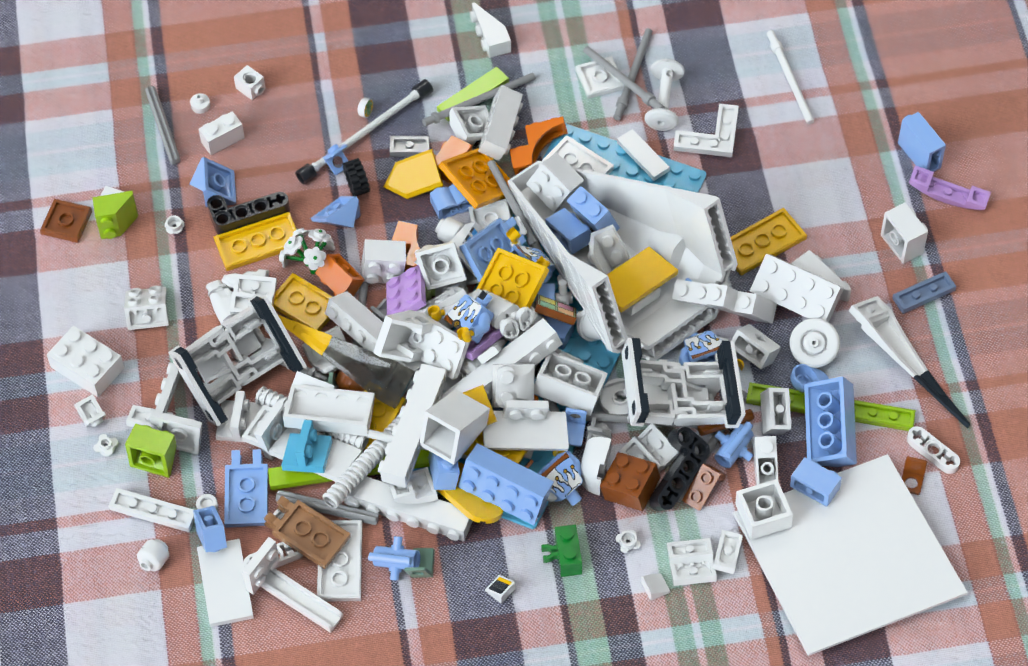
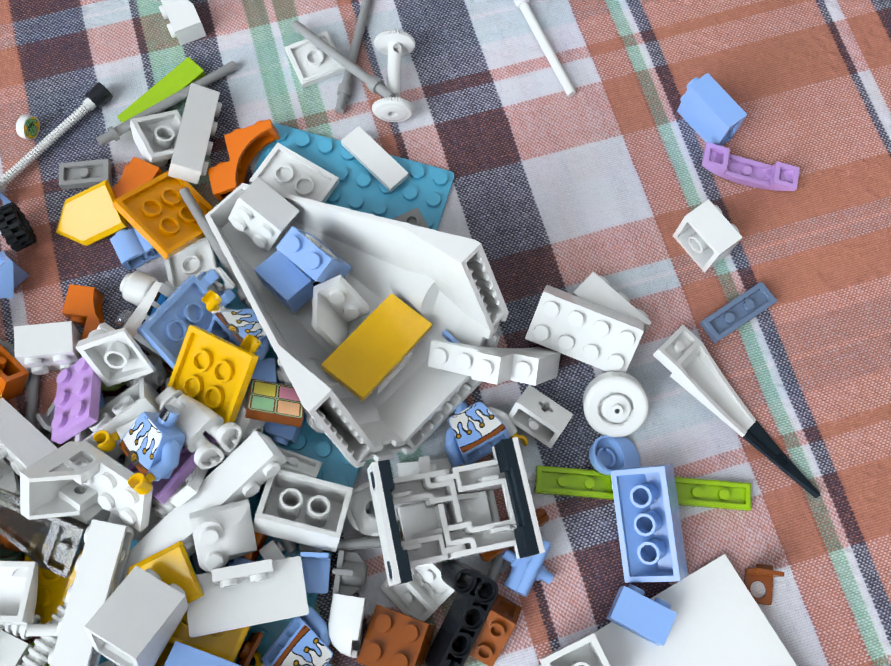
camera: 10 degrees left, 15 degrees up
(719, 144) = (462, 135): white plate -> none
(765, 459) = (571, 592): white slope -> none
(768, 236) = (534, 259): yellow tile -> none
(775, 411) = (577, 513): white brick -> none
(933, 458) = (801, 544): white beam -> none

